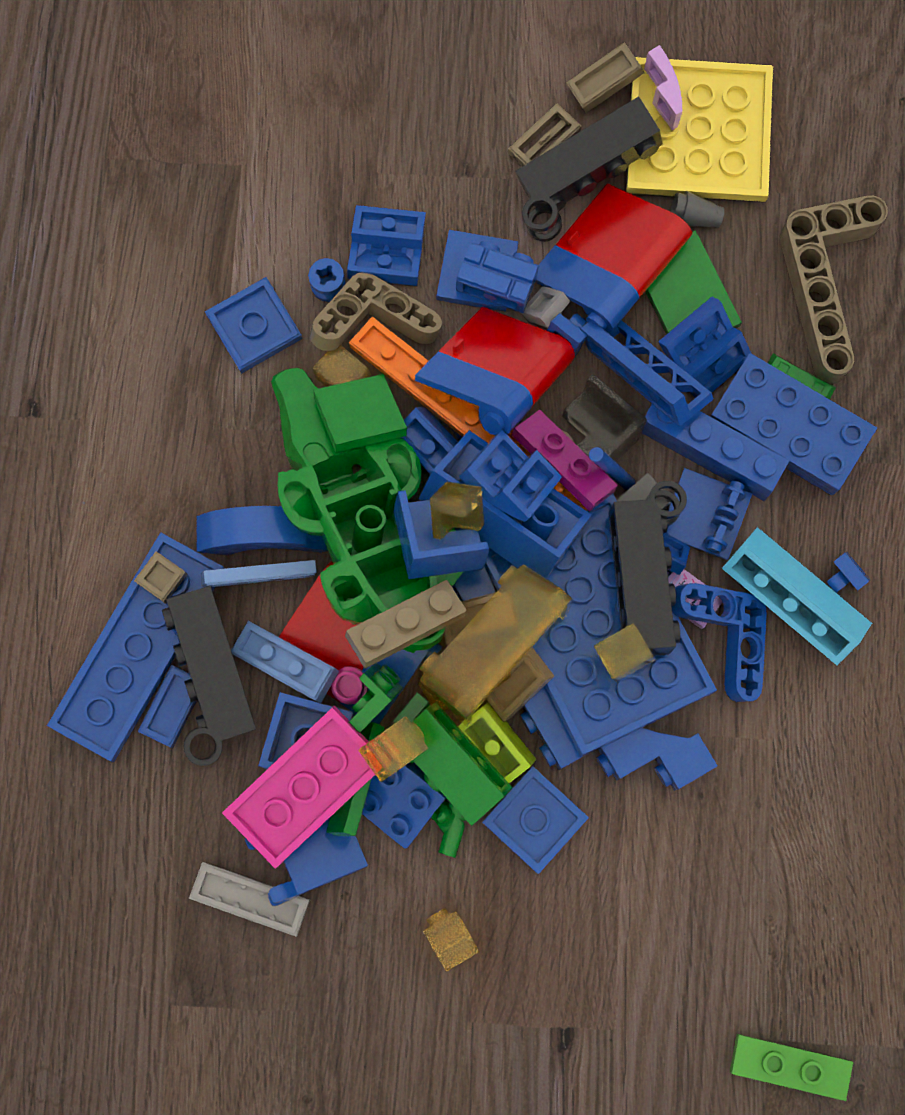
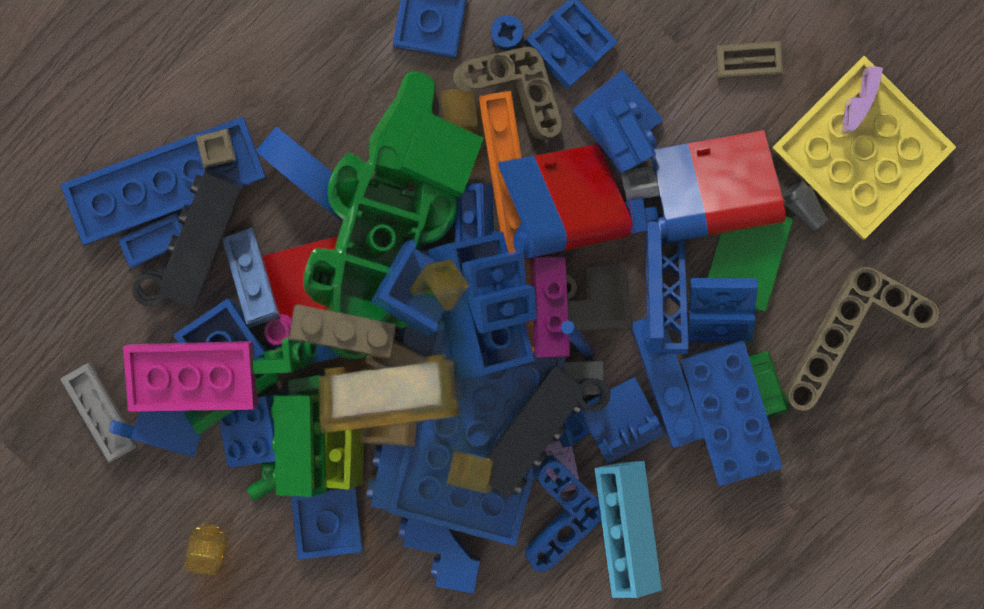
camera: 35 degrees right, 10 degrees up
(258, 573) = (283, 203): medium blue tile -> none
(394, 748) = (265, 405): clear yellow brick -> none
(584, 161) = (758, 104): black hinge -> none
(605, 77) = (830, 52): dark tan tile -> none
(849, 572) = (678, 543): blue tile -> none

